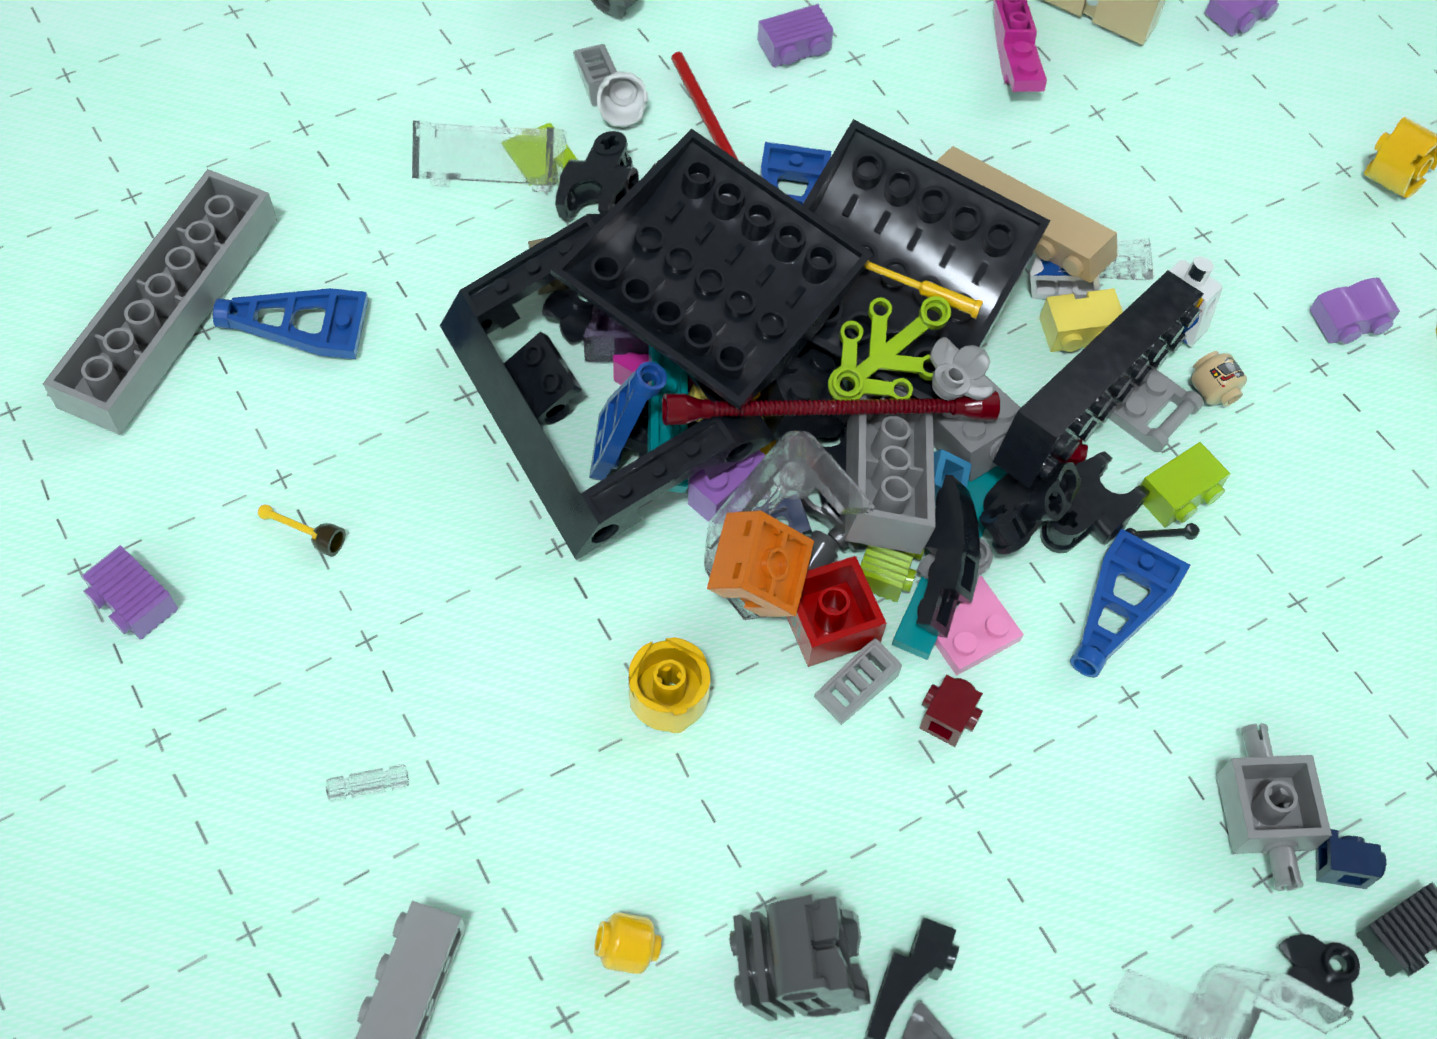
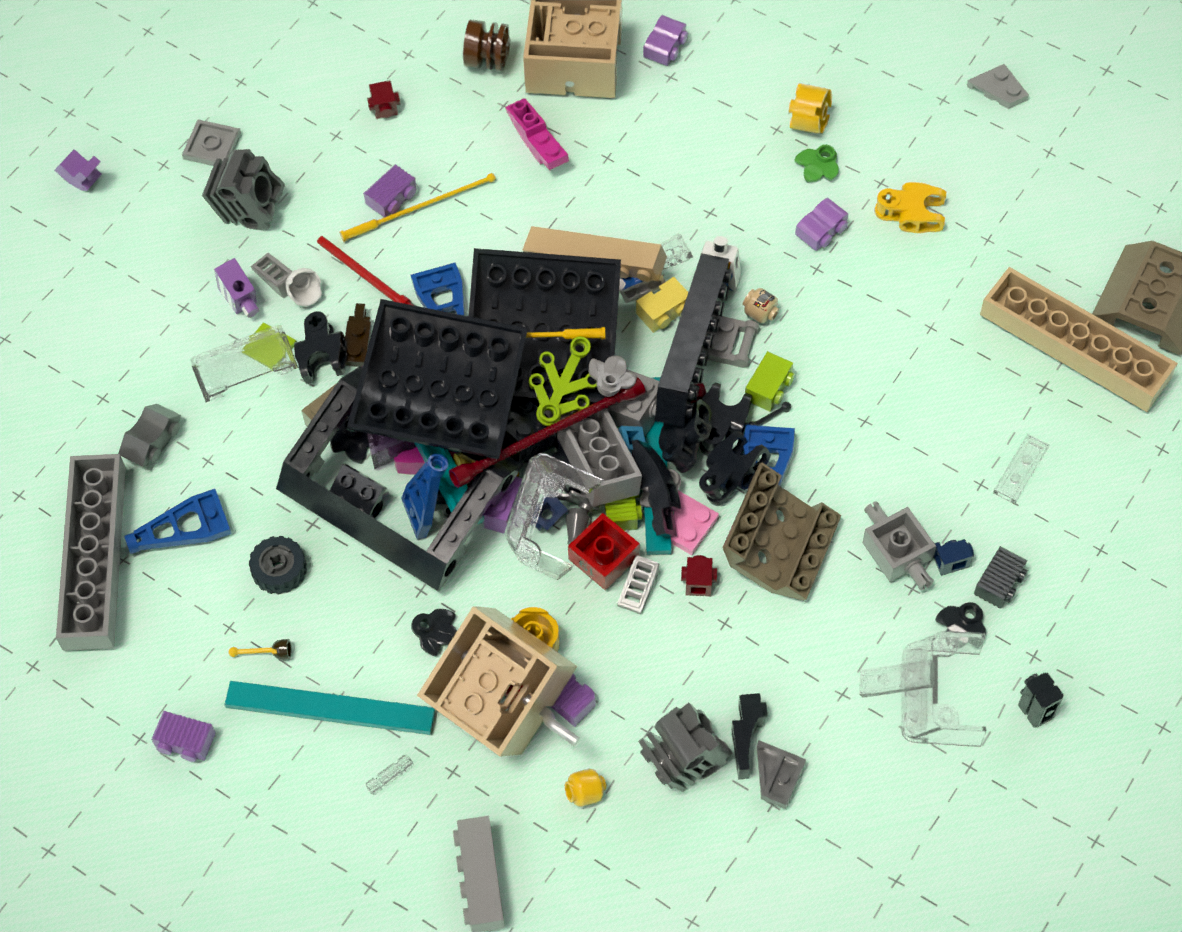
camera: 20 degrees left, 0 degrees up
(327, 191) = (150, 434): none -> dark grey brick
(347, 650) = (330, 707): none -> teal tile
(383, 443) = (281, 577): none -> black wheel
(537, 72) = (236, 288): none -> medium lavender torso
(548, 615) = (439, 630): none -> black plate
(586, 687) = (495, 660): none -> tan piece
(673, 790) = (575, 701): none -> medium lavender brick
(754, 66) = (372, 224): none -> yellow piece
(761, 563) = (553, 542): orange piece -> none
(1071, 581) = (731, 469): none -> black piece
(1106, 732) = (791, 547): none -> dark tan slope
(1384, 232) = (816, 165): none -> bright green plate

